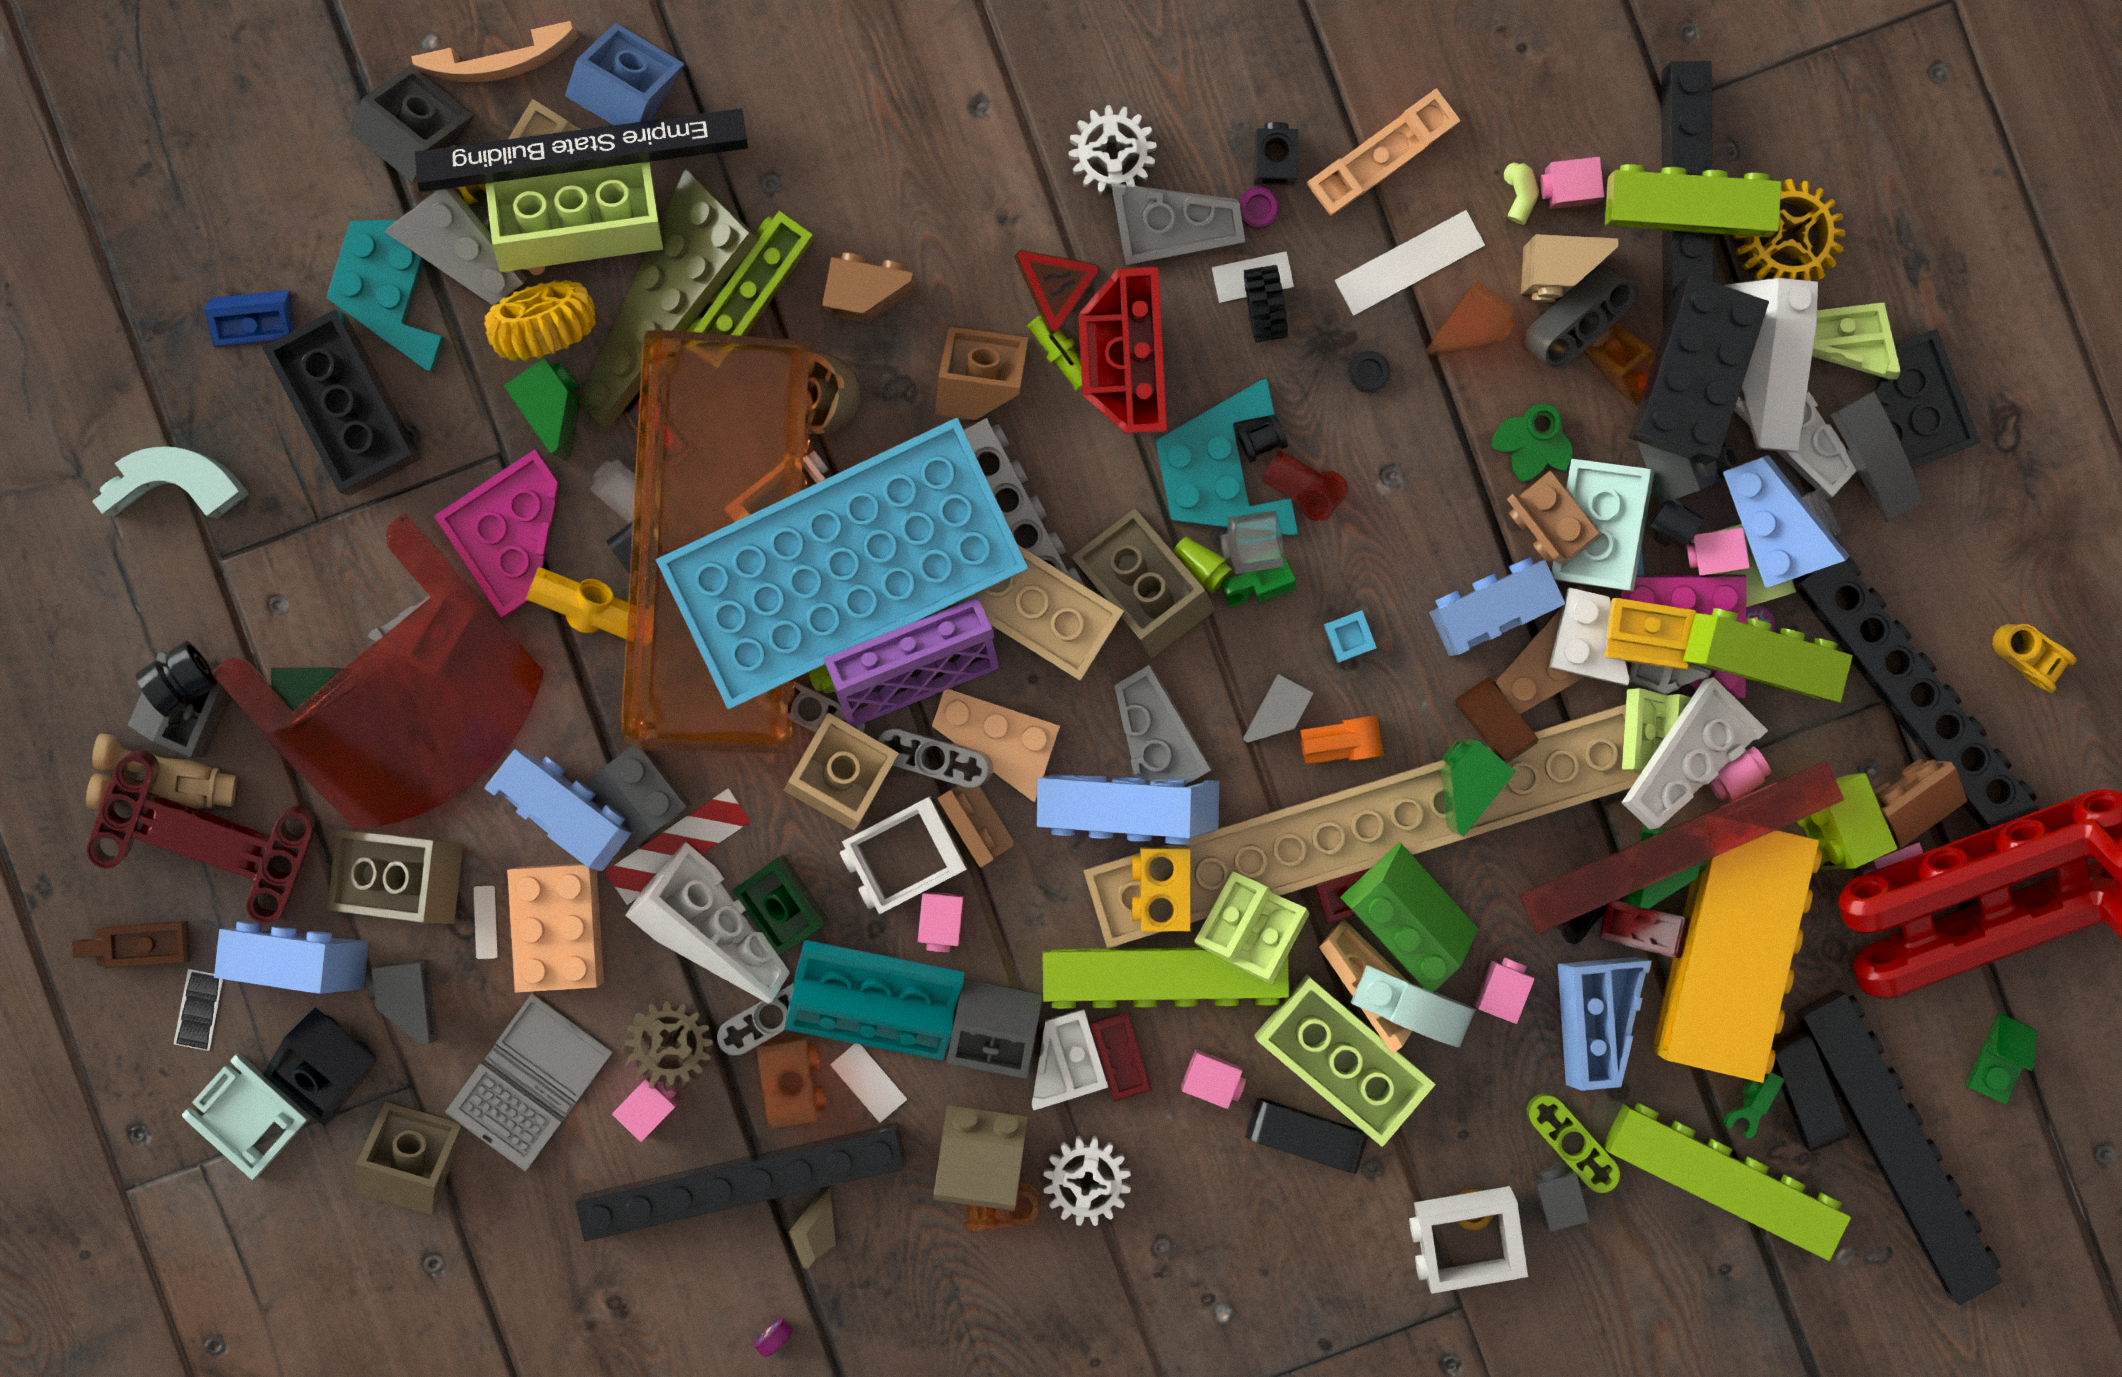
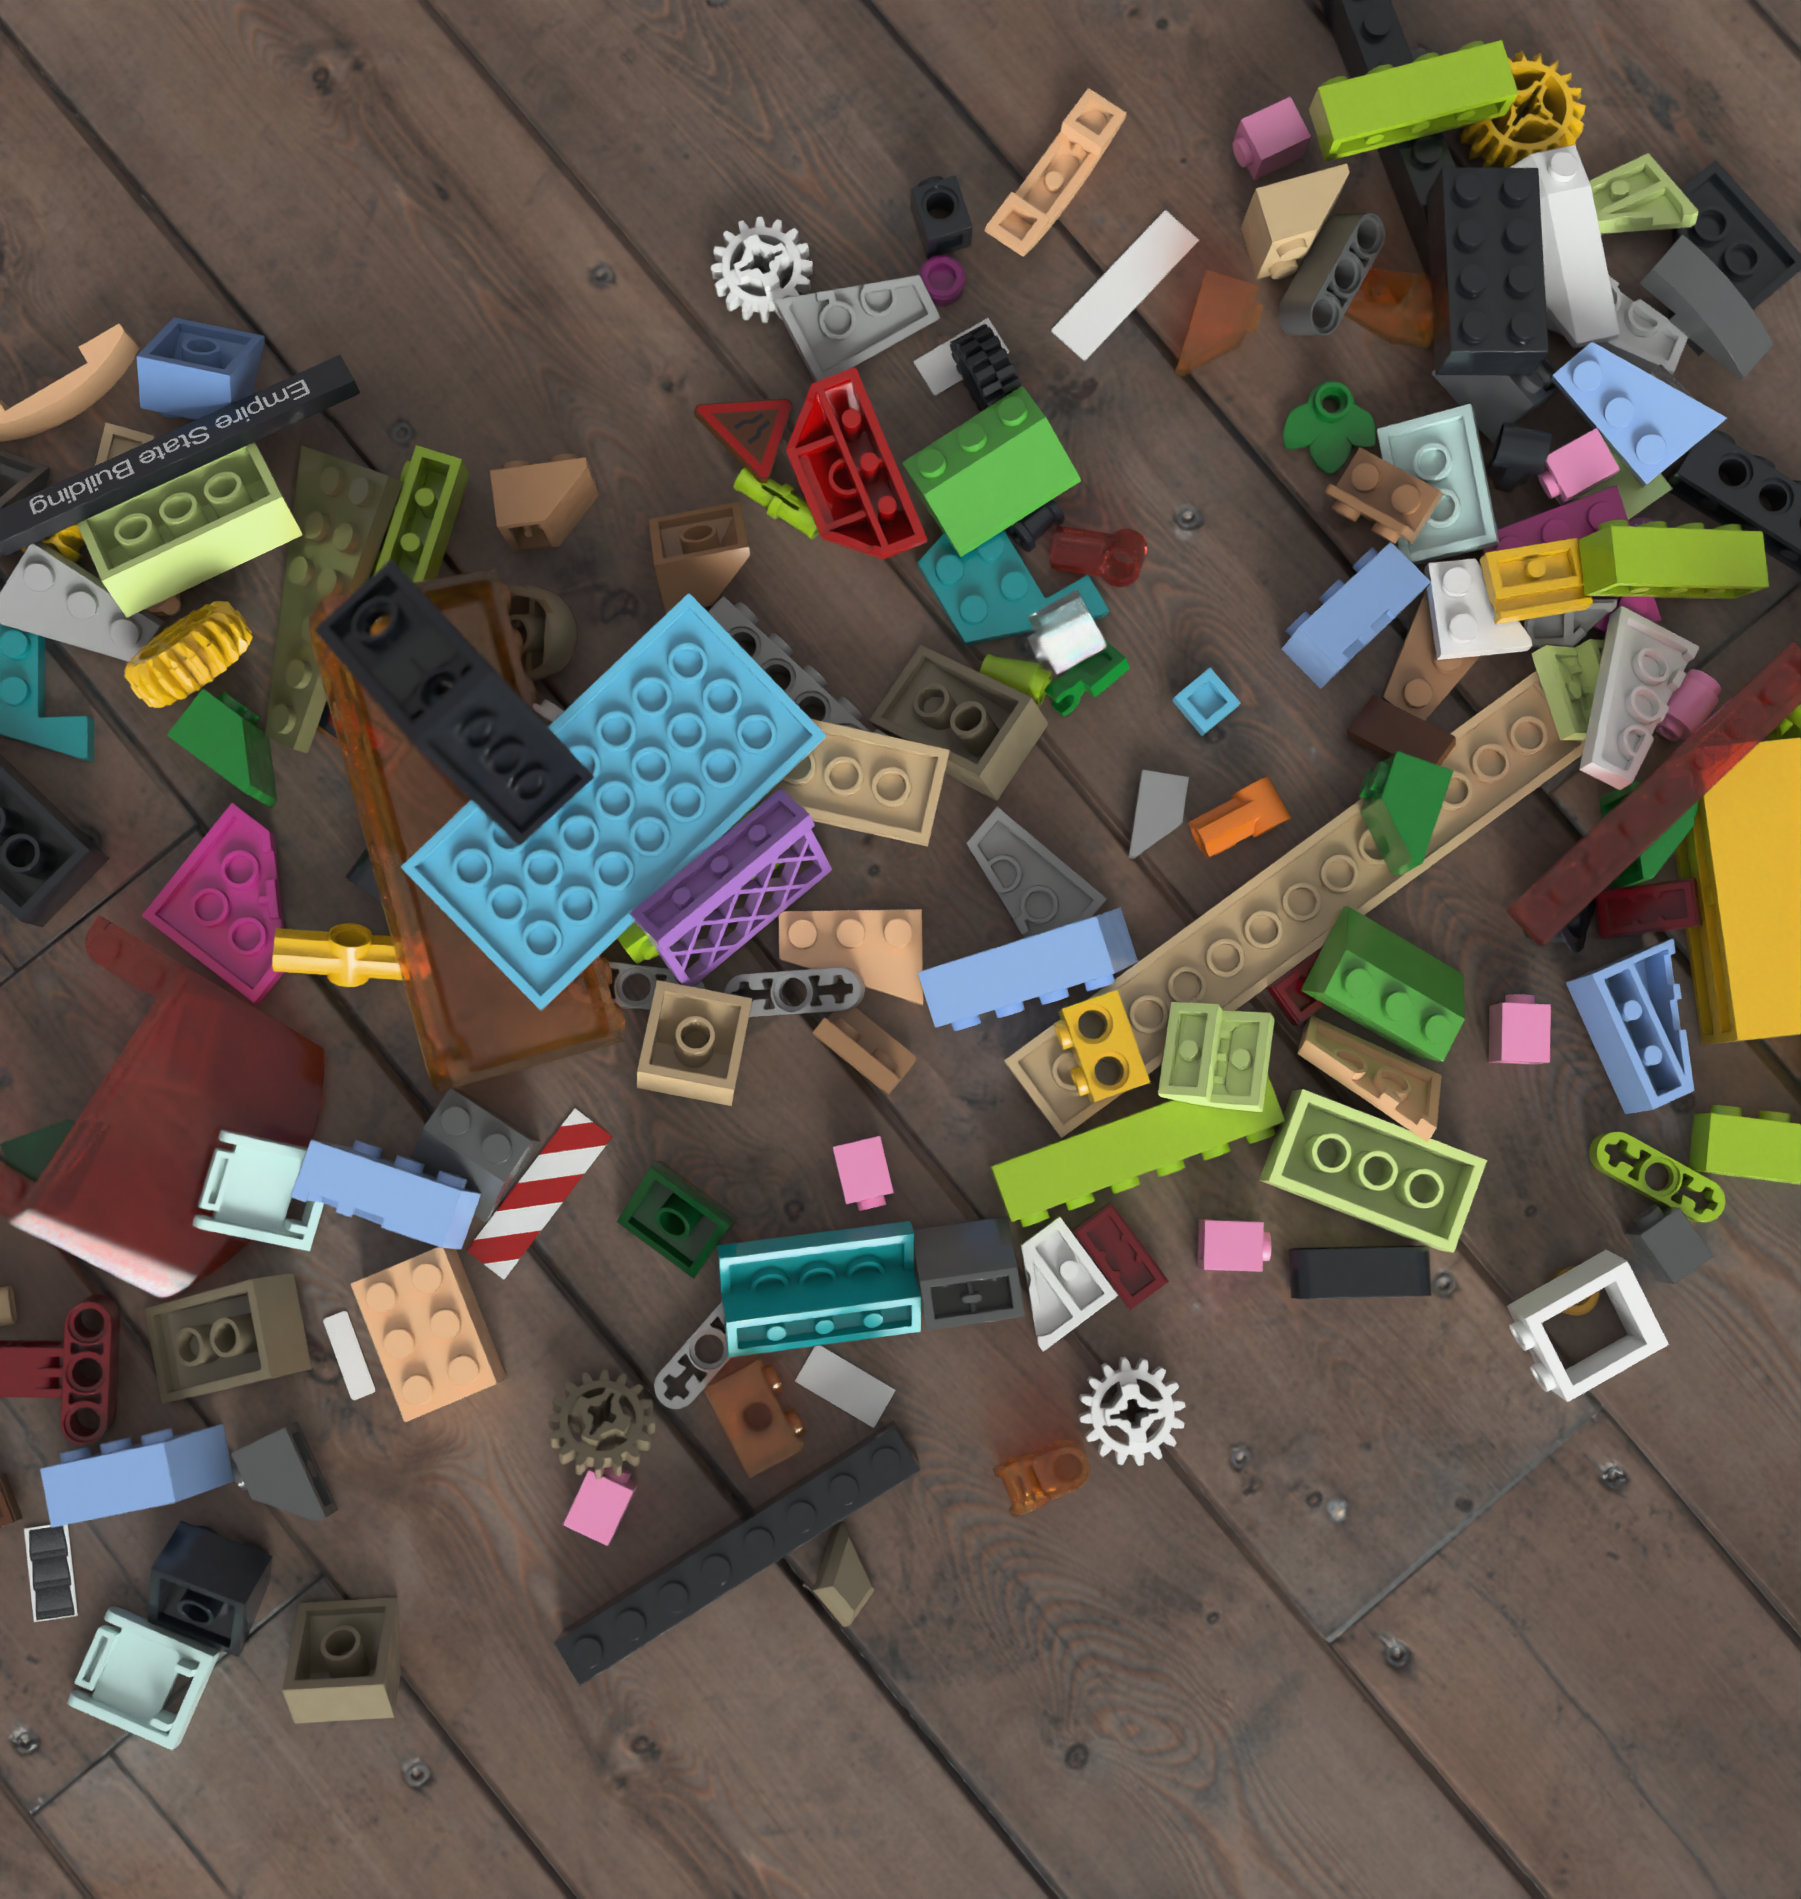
camera: 20 degrees left, 5 degrees down
(453, 768) = (253, 1192): none -> light aqua container
(528, 1082) = (457, 1522): light grey piece -> none
(616, 487) = (335, 814): clear brick -> none
(698, 919) = (591, 1268): white wedge -> none
(759, 502) = (453, 704): none -> black piece
(773, 1337) = (836, 1721): magenta tile -> none
(871, 890) = (744, 1138): white window -> none
(980, 1158) = (1003, 1426): dark tan slope -> none
(1239, 390) = (991, 471): none -> bright green slope
(1369, 371) = (1123, 413): black tile -> none
(1413, 1007) = (1429, 1080): light aqua arch -> none
(1526, 189) = (1224, 166): yellowish green arm -> none

